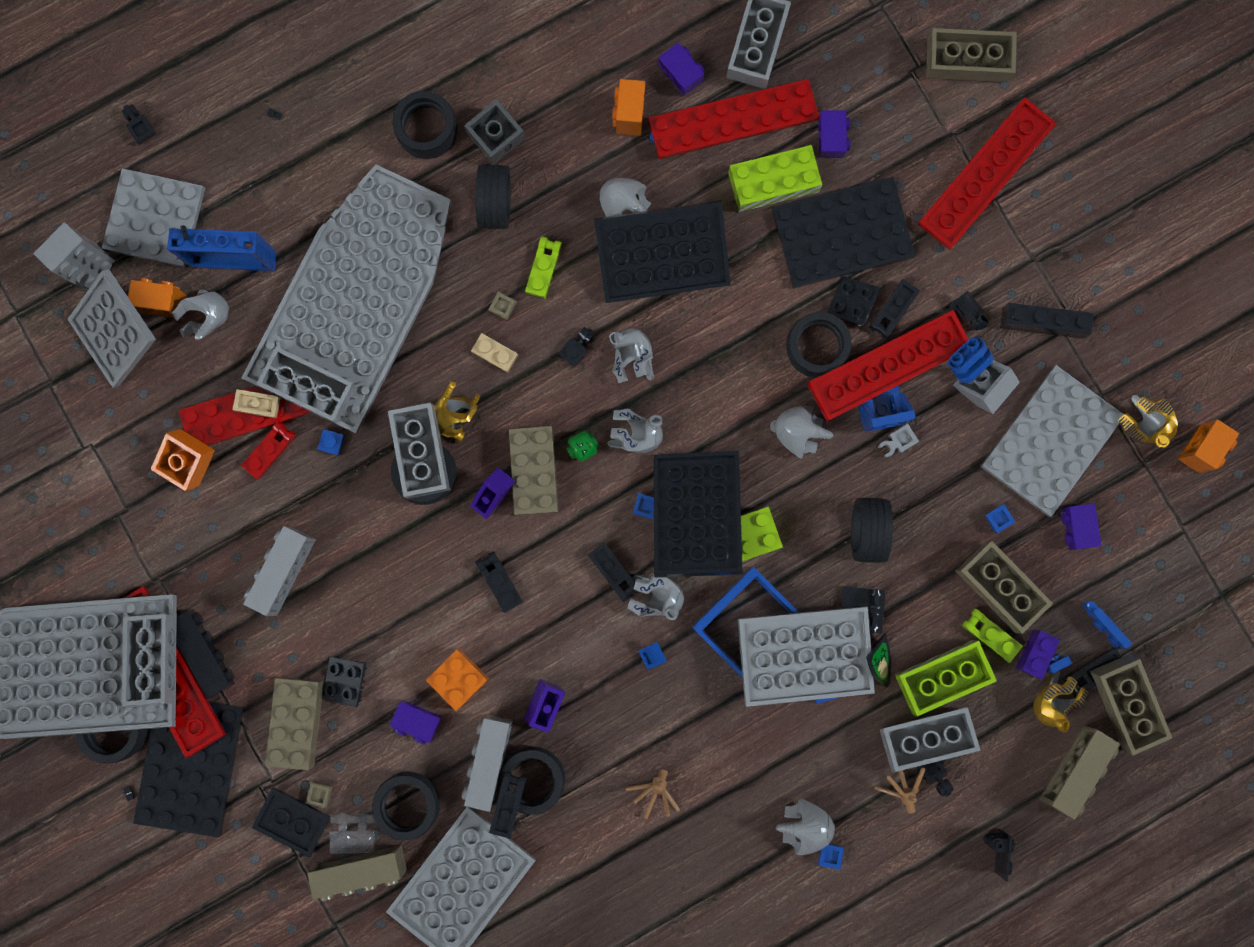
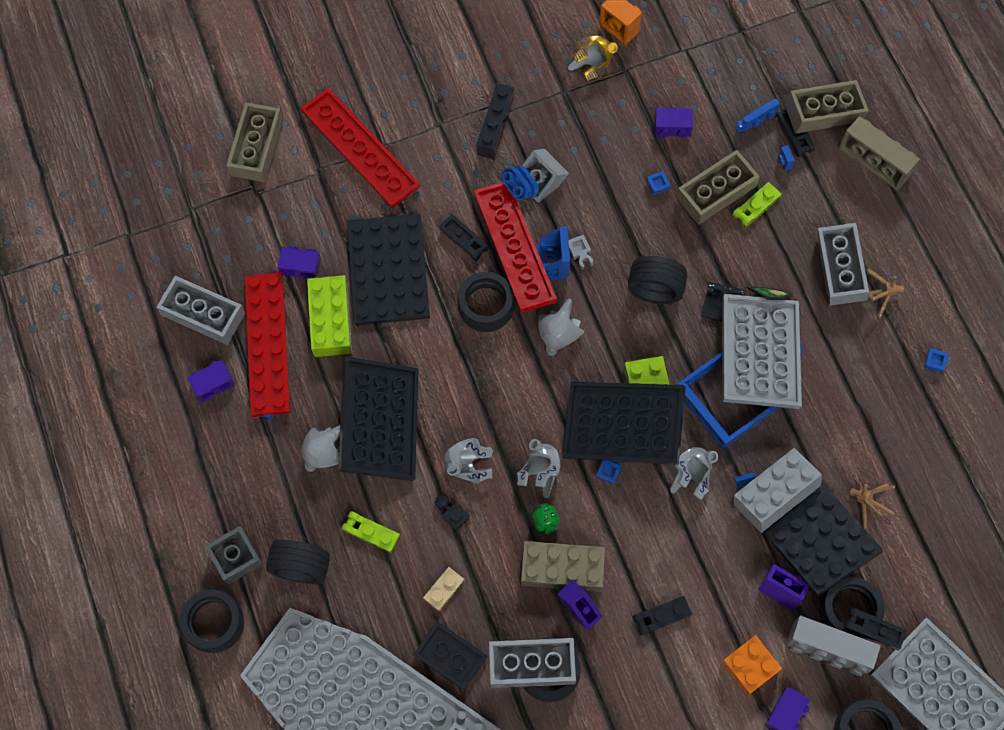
camera: 80 degrees left, 15 degrees down
(426, 369) = (450, 655): none -> black plate
(446, 414) = (503, 633): pearl gold piece -> none
(502, 306) = (400, 575): dark tan tile -> none
(611, 730) = (822, 540): none -> black plate
(612, 571) = (664, 509): black plate -> none
(629, 107) = (238, 428): orange brick -> none
(647, 689) = (777, 490): none -> light grey brick
(809, 834) = (914, 367): light grey piece -> none
(854, 301) = (451, 268): black hinge -> none
(935, 772) = (883, 258): black plate -> none
(945, 677) = (790, 244): lime brick -> none
(965, 307) = (473, 180): black plate -> none
(1004, 846) = (944, 221): black hinge -> none
(1037, 654) = (777, 170): dark purple brick -> none
(1052, 441) = (597, 134): light grey plate -> none
(1052, 710) = (822, 168): pearl gold piece -> none

